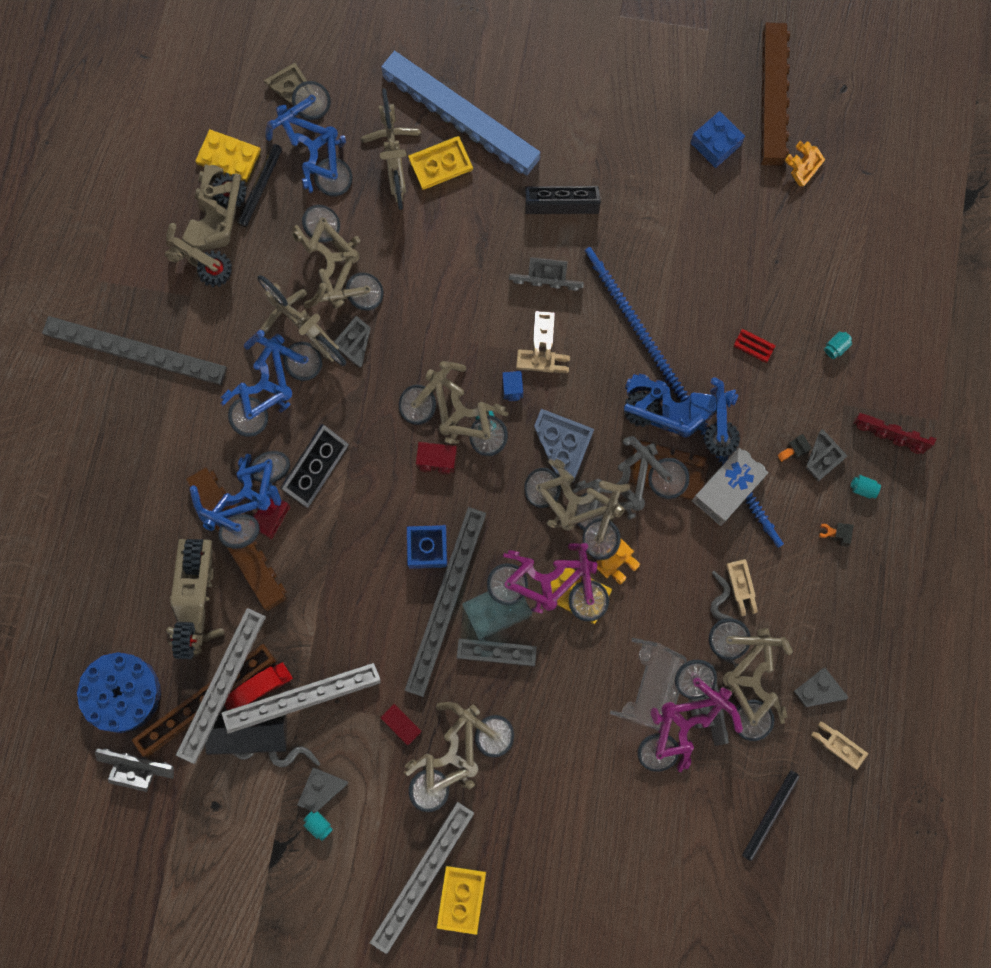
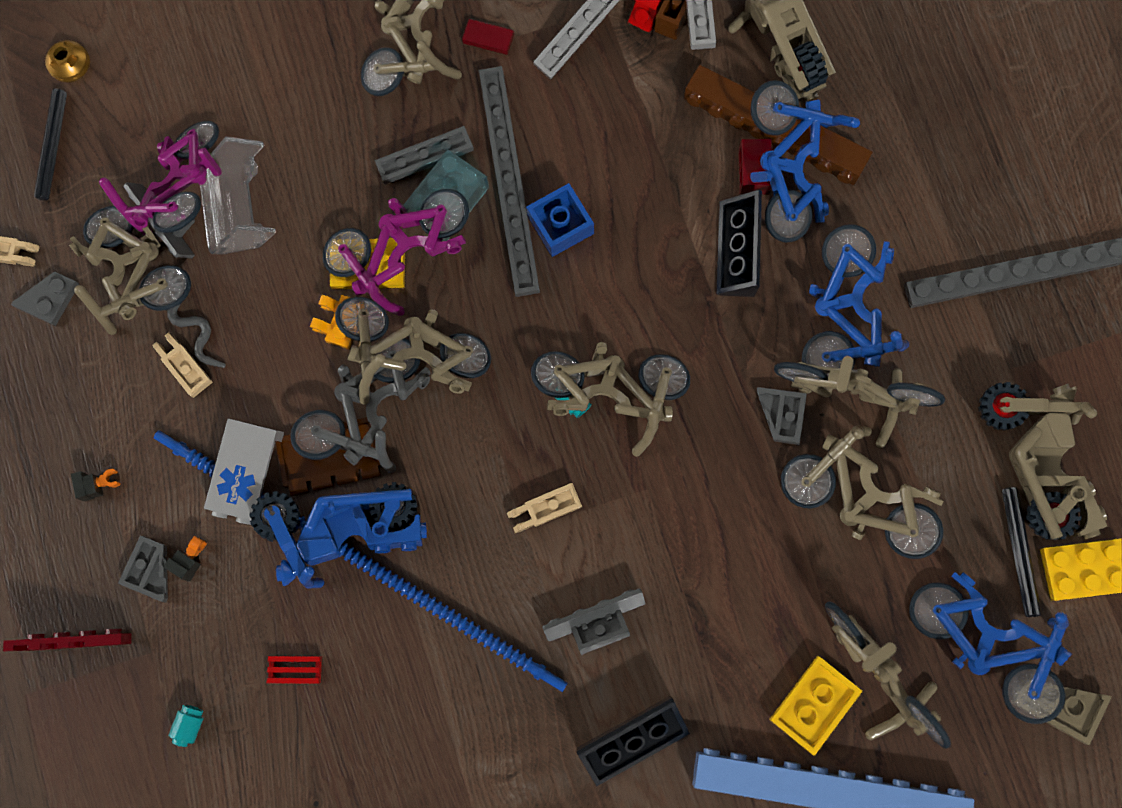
camera: 160 degrees right, 0 degrees up
(436, 457) = (607, 326): dark red brick -> none
(512, 385) = (564, 458): blue brick -> none
(543, 333) = (561, 543): hinge -> none
(563, 440) = (469, 424): sand blue plate -> none
(720, 879) = (71, 67): none -> pearl gold piece
(865, 487) = (81, 557): teal brick -> none

